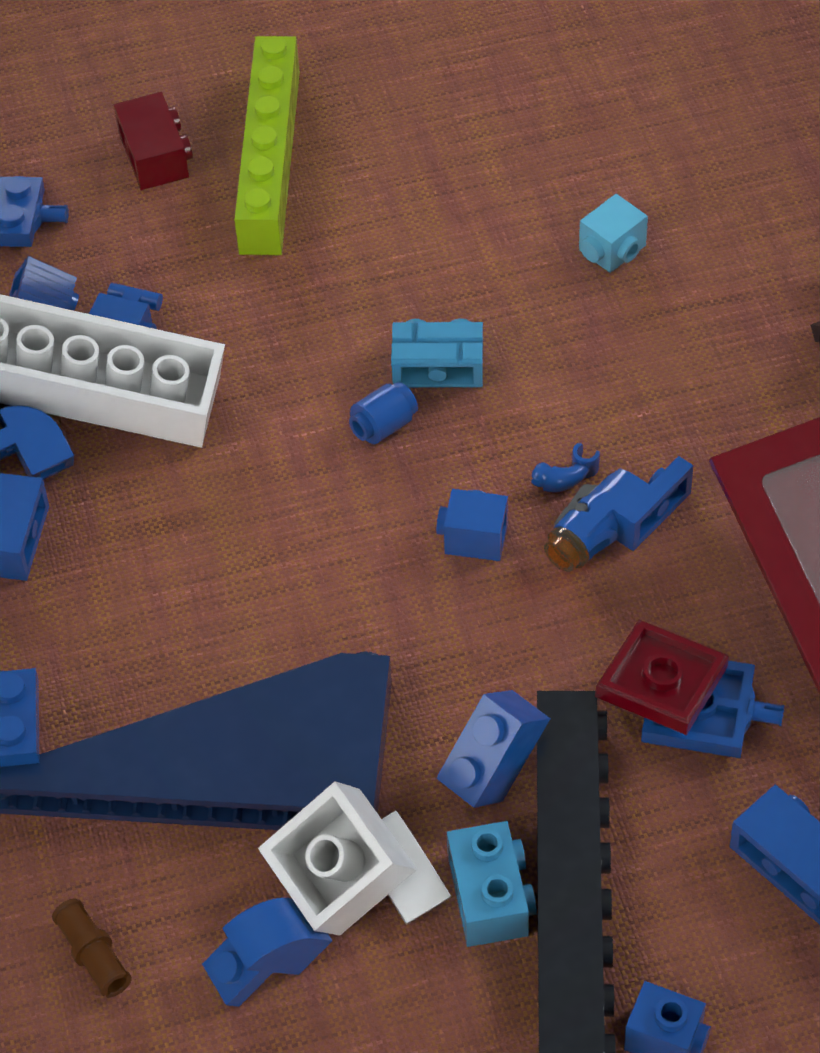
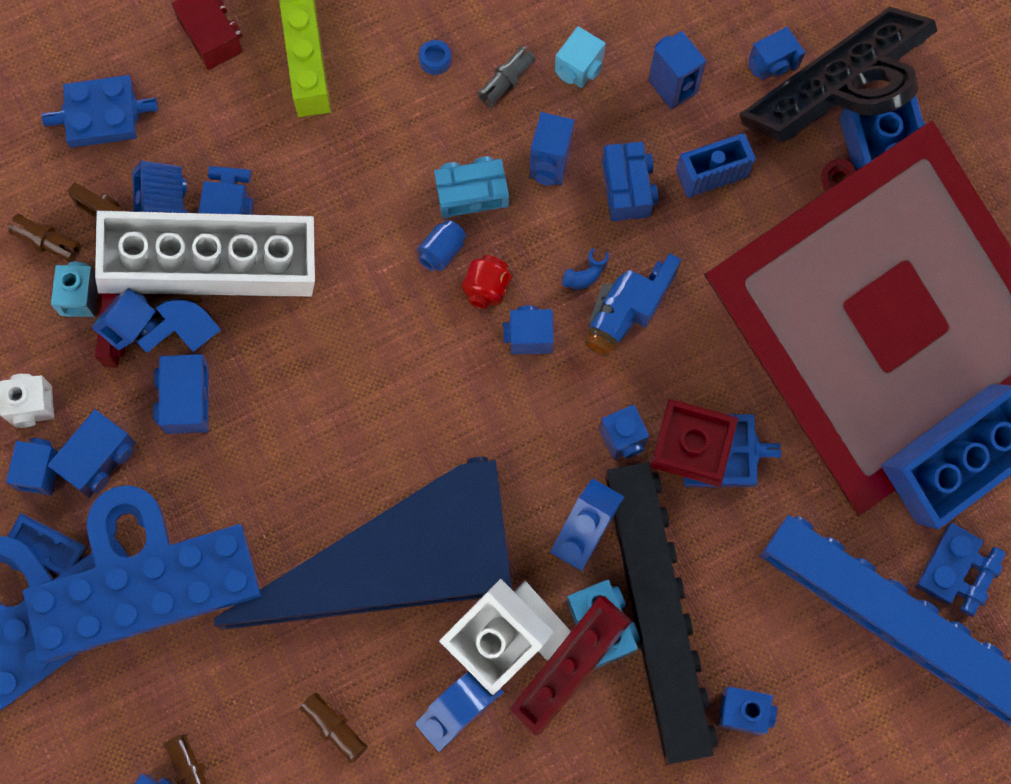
camera: 15 degrees left, 20 degrees up
(428, 212) = (435, 57): none -> blue tile
(429, 914) = (570, 665): none -> dark red plate
(431, 460) = (486, 282): none -> red head
(513, 243) = (506, 76): none -> dark grey pin
(549, 319) = (551, 149): none -> blue brick
(571, 655) = (624, 433): none -> blue brick
(644, 376) = (628, 181): none -> blue brick
(733, 257) = (676, 69): none -> blue brick
(763, 370) = (715, 165): none -> blue brick

